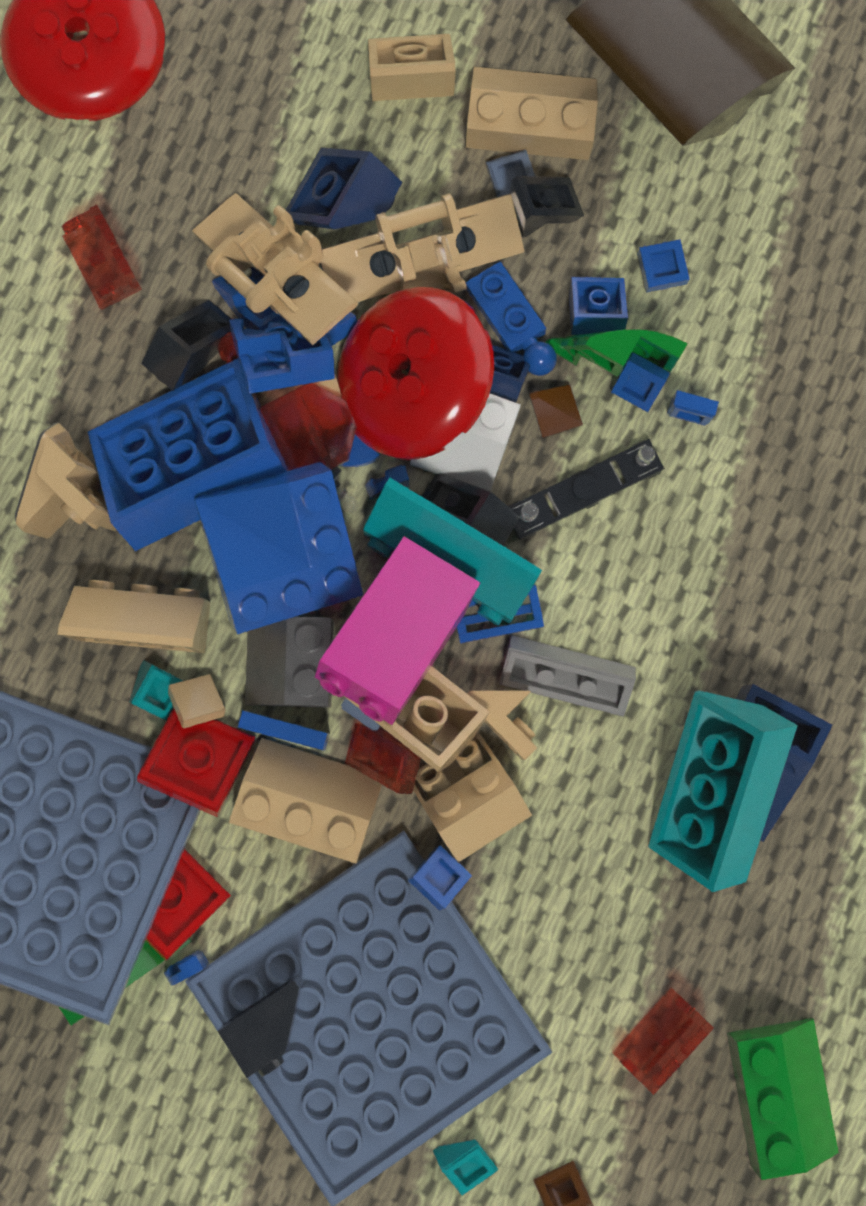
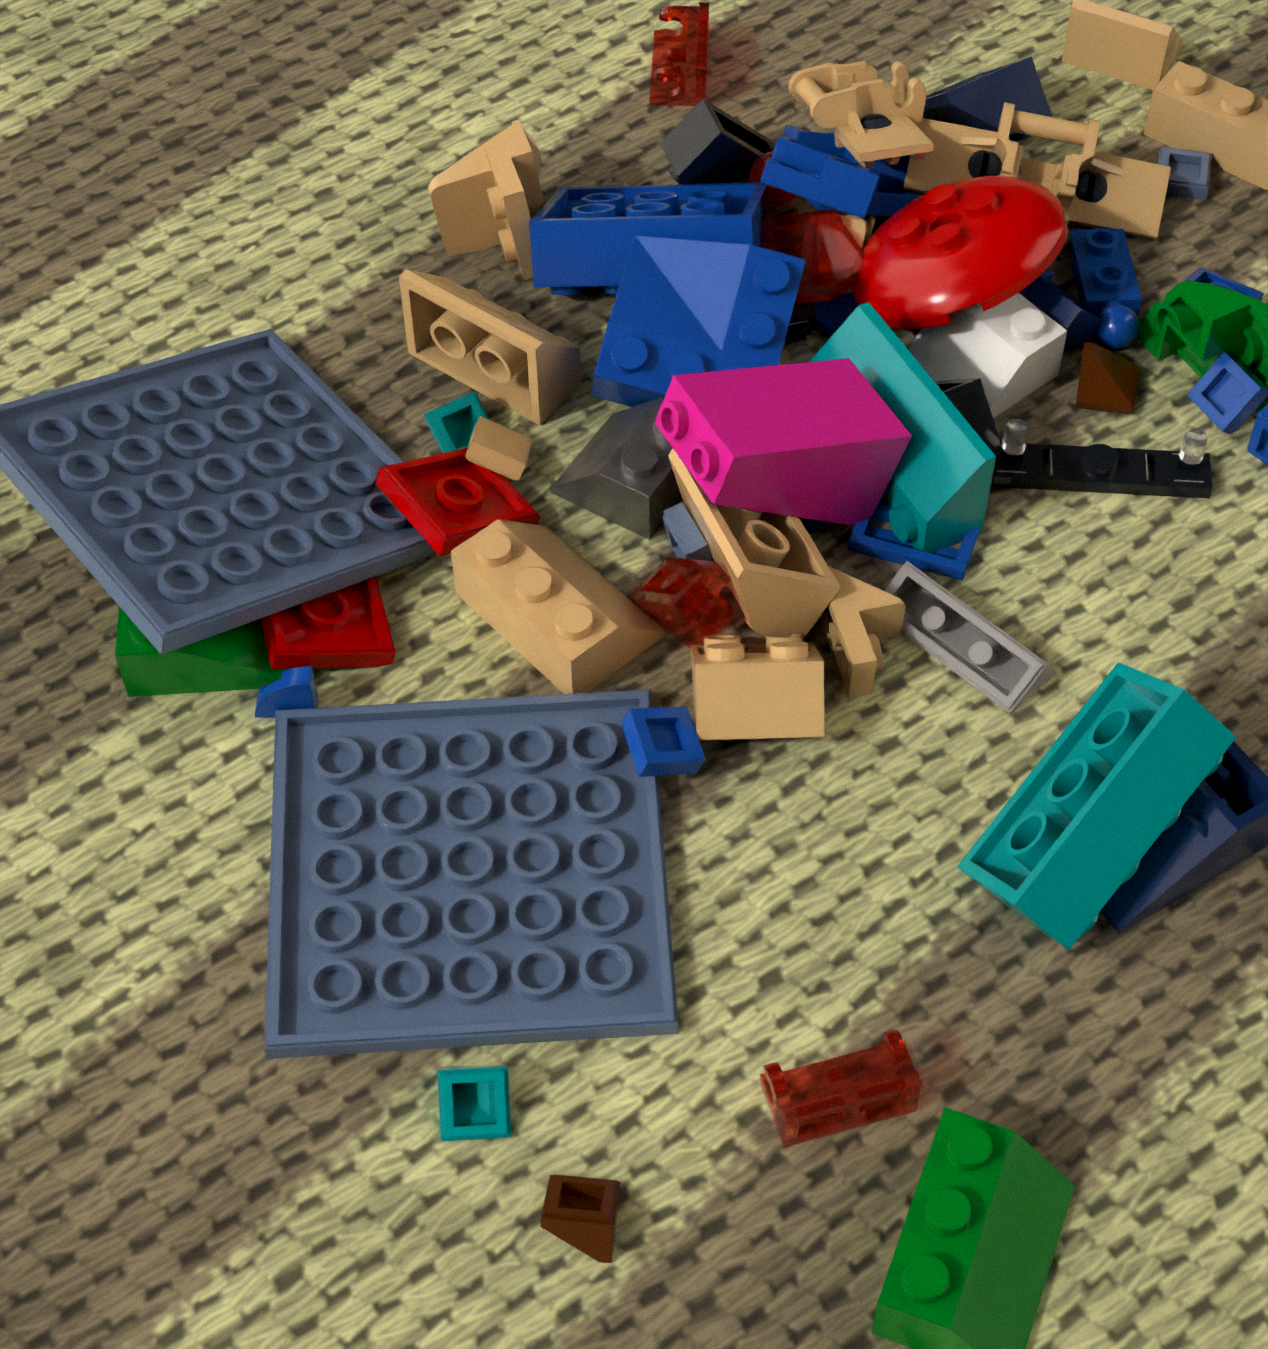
camera: 35 degrees right, 30 degrees down
(263, 1029) = (338, 781): black slope -> none
(283, 730) = (580, 520): blue tile -> none
(544, 202) = (1204, 187): black slope -> none

